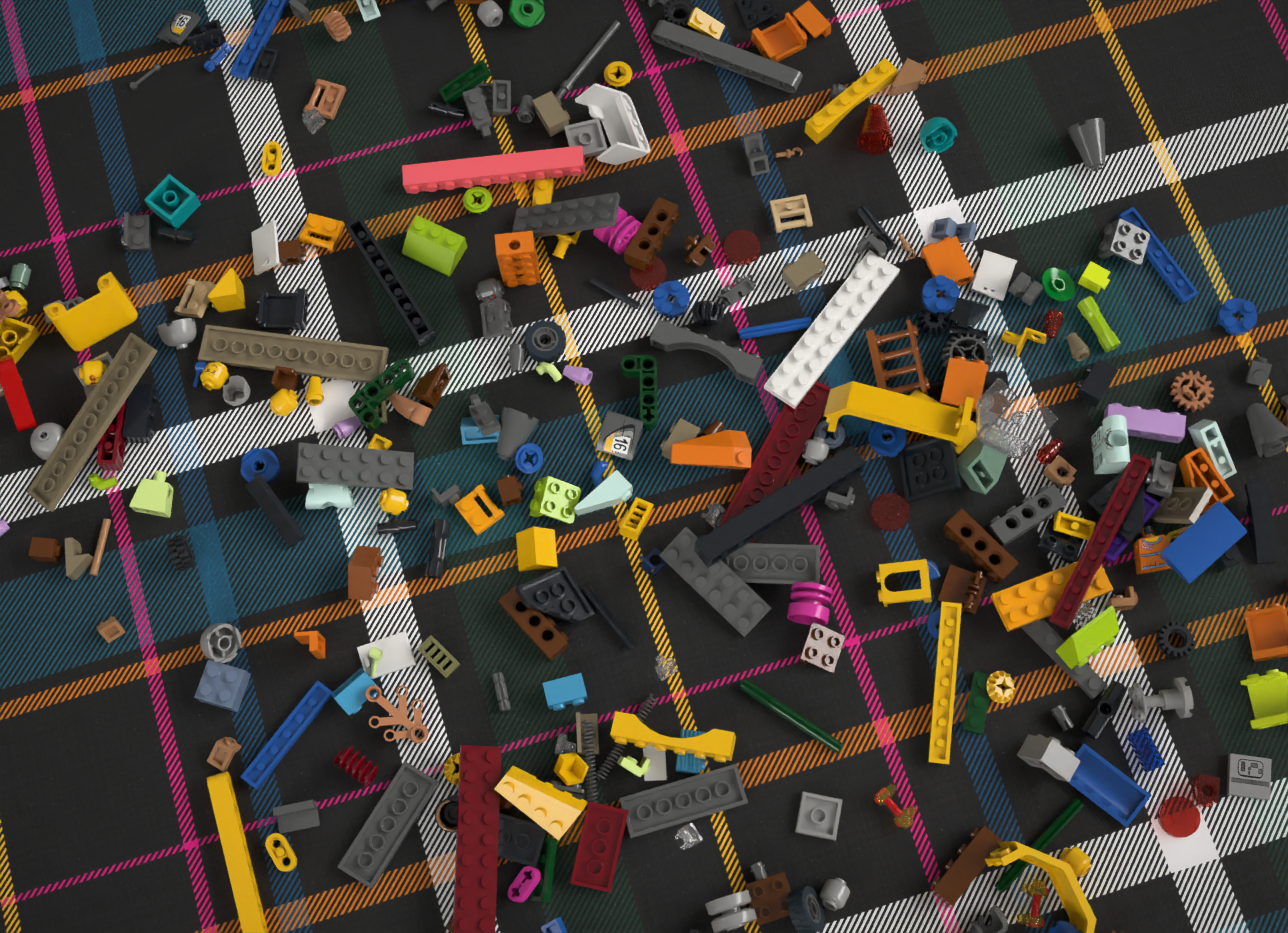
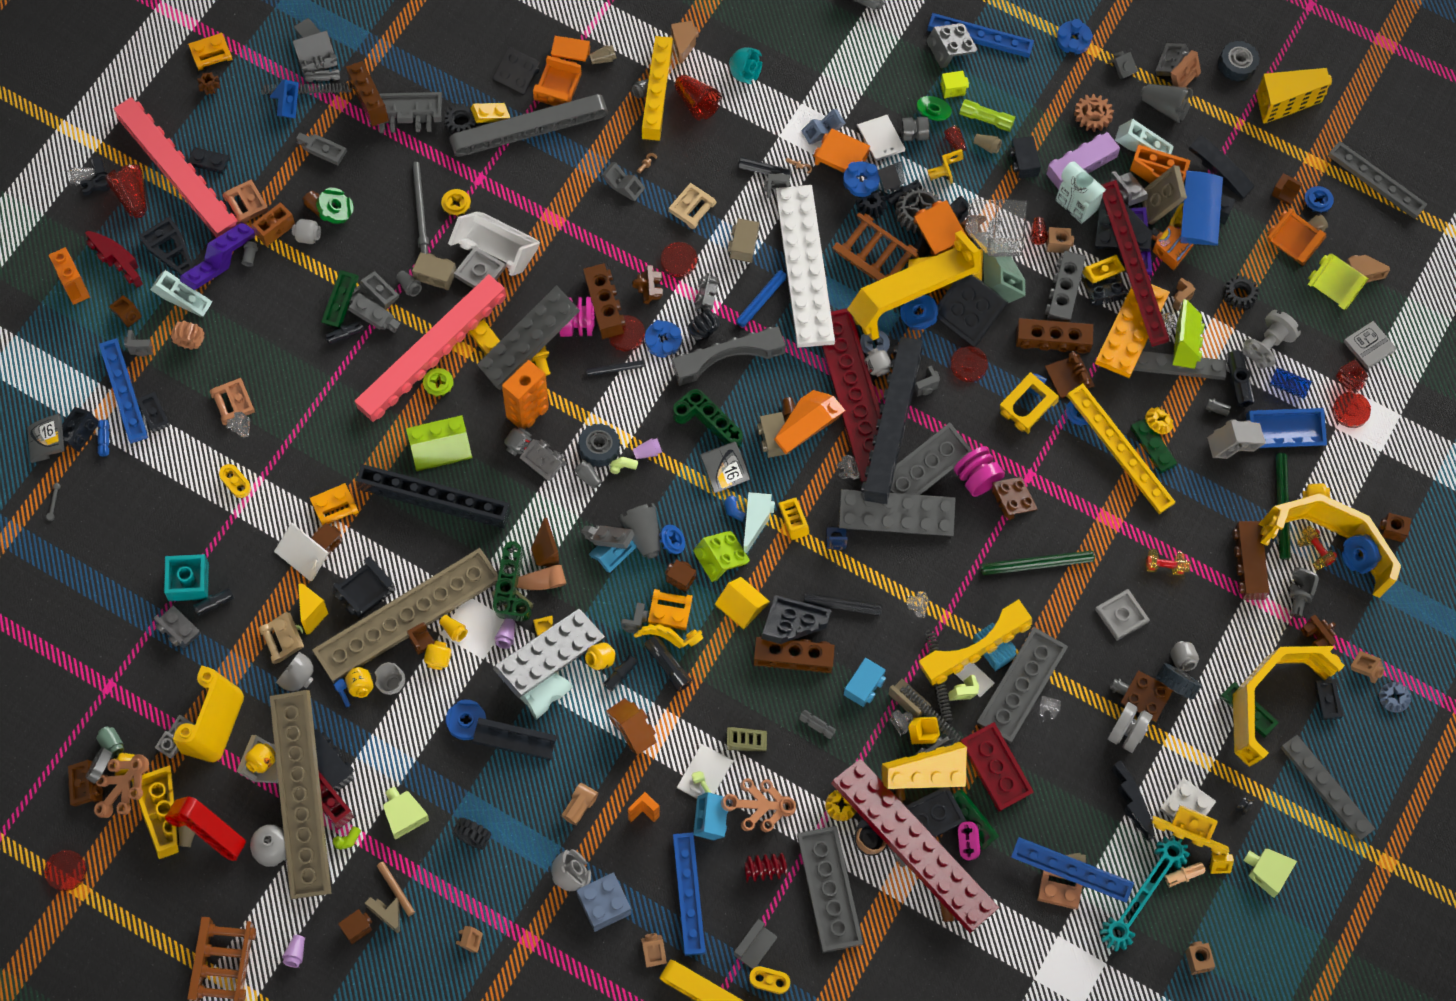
camera: 50 degrees left, 5 degrees down
(282, 596) = (581, 800): none -> medium nougat piece
(459, 529) = (693, 636): none -> yellow plant
(835, 44) = (603, 55): none -> dark tan cone

